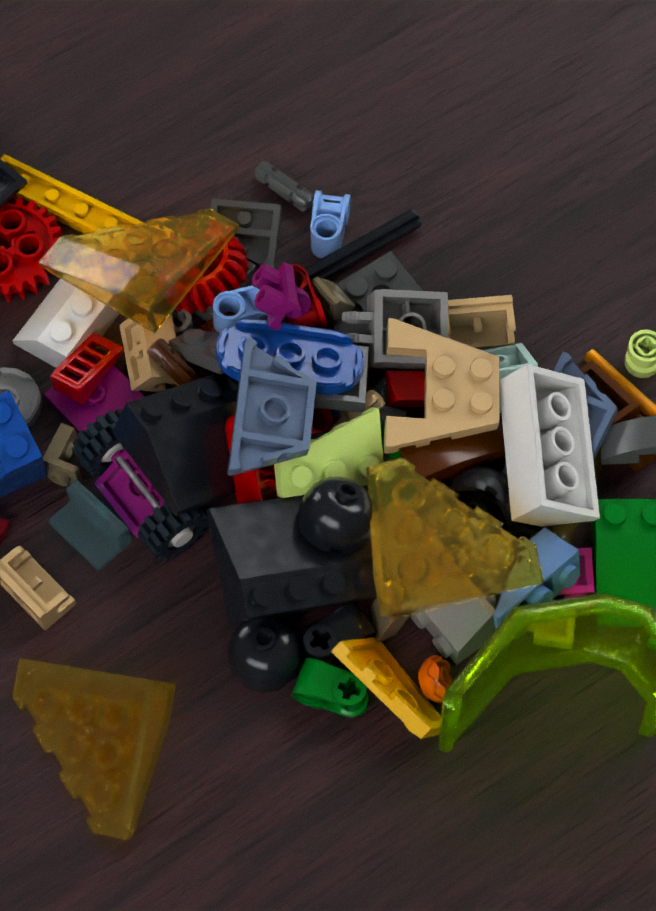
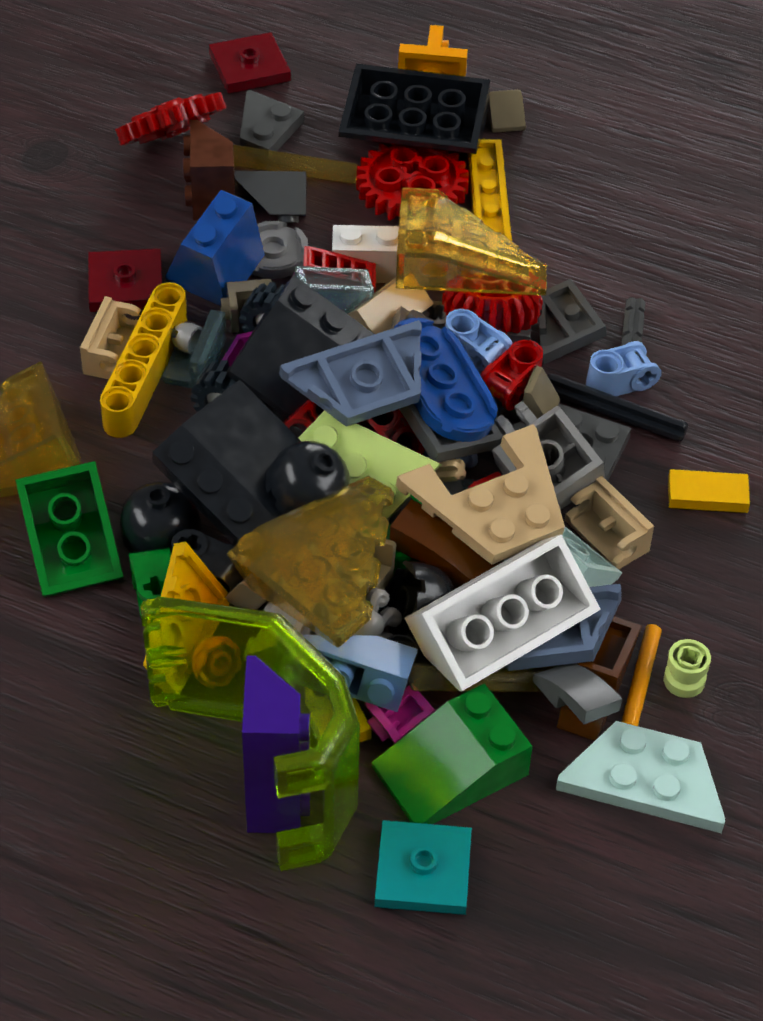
camera: 55 degrees right, 15 degrees down
(74, 525) = (187, 337): none -> light grey hinge
(80, 587) = (143, 361): none -> yellow beam
(113, 378) = (341, 286): none -> clear light blue slope
(171, 362) = (381, 317): reddish brown axle -> none
(232, 727) = (69, 529): none -> green slope
(279, 294) = (492, 336): magenta hips -> none
(482, 236) = (708, 491): none -> yellow tile
(591, 682) = (271, 729): none -> dark purple slope

